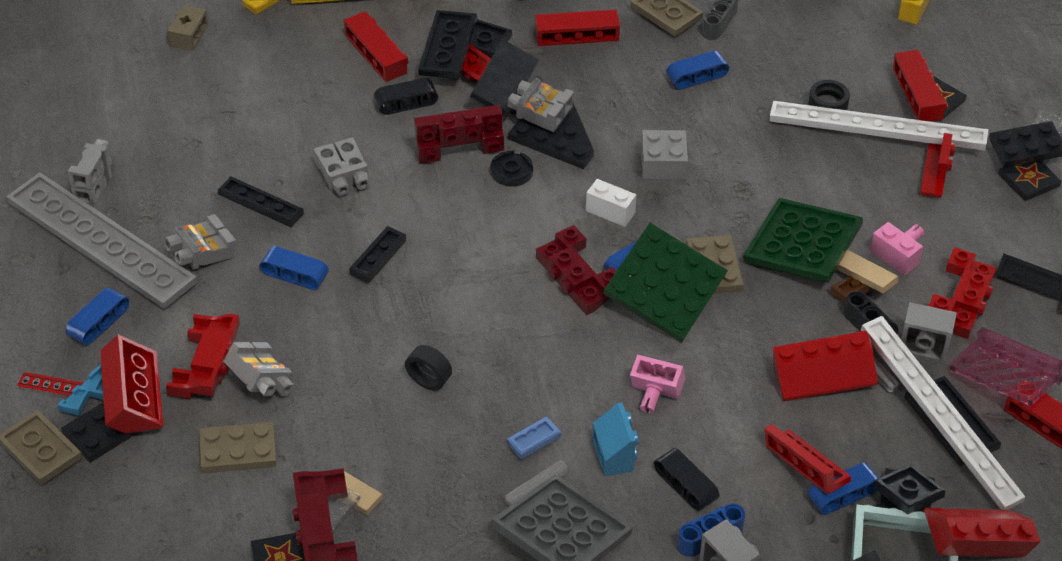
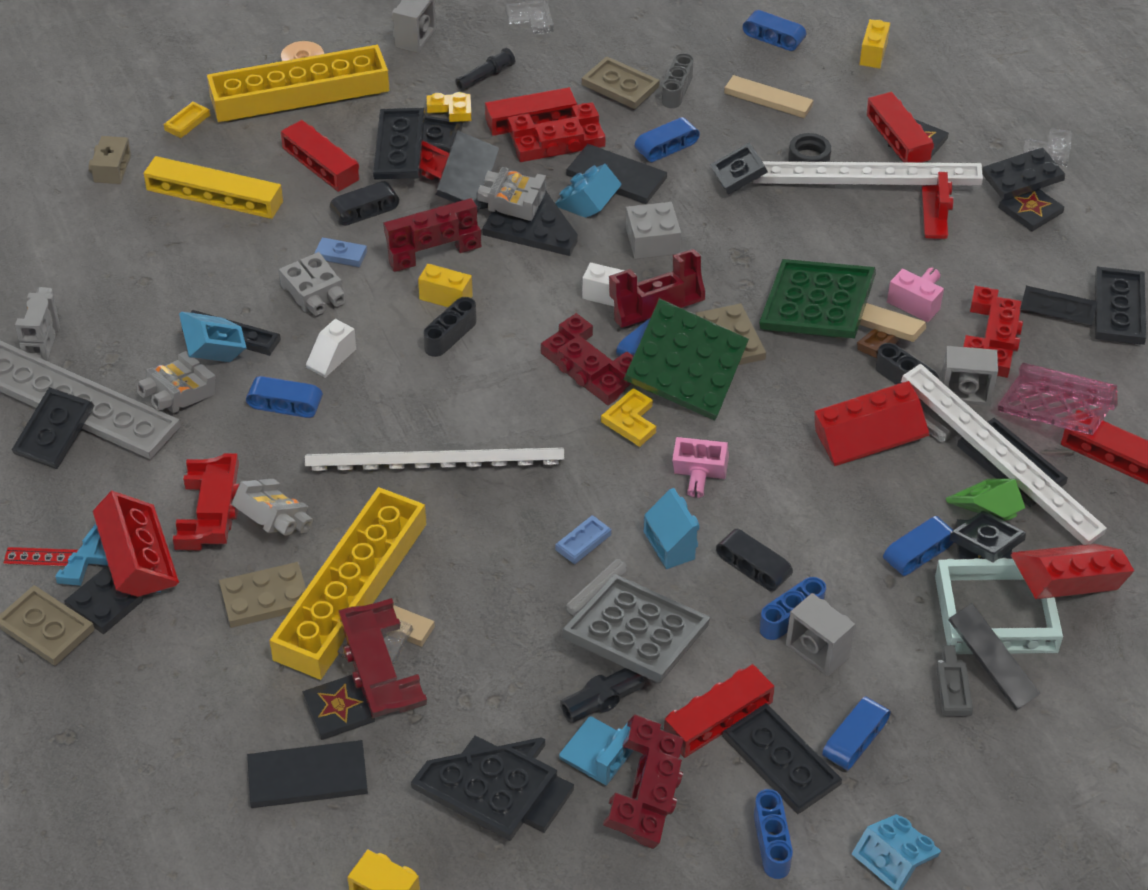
camera: 10 degrees left, 0 degrees up
(84, 269) = (53, 428): none -> black tile
(97, 316) = (78, 476): blue beam -> none
(239, 204) = (212, 337): none -> dark azure slope
(274, 64) = (213, 187): none -> yellow brick
(312, 445) = (349, 577): none -> yellow brick
(346, 228) = (331, 348): none -> white slope
(375, 139) = (342, 252): none -> medium blue plate
(377, 254) = (371, 371): black plate -> none
(405, 342) = (423, 458): none -> white plate
(435, 360) = (461, 471): black tyre -> none
(457, 222) = (450, 326): none -> black beam
(461, 184) = (443, 285): none -> yellow brick
(509, 13) = (457, 105): none -> yellow plate
(511, 168) = (494, 264): black tile -> none
(596, 55) = (556, 136): none -> red bracket
(599, 329) = (626, 417): none -> yellow plate
(613, 110) = (589, 191): none -> dark azure slope
(644, 96) = (637, 179): none -> black tile
(669, 213) = (637, 301): none -> dark red bracket
(757, 106) = (739, 168): none -> black plate
(803, 39) = (768, 96): none -> tan tile
(805, 459) = (874, 521): red fence -> none
(923, 451) = (993, 496): none -> bright green slope

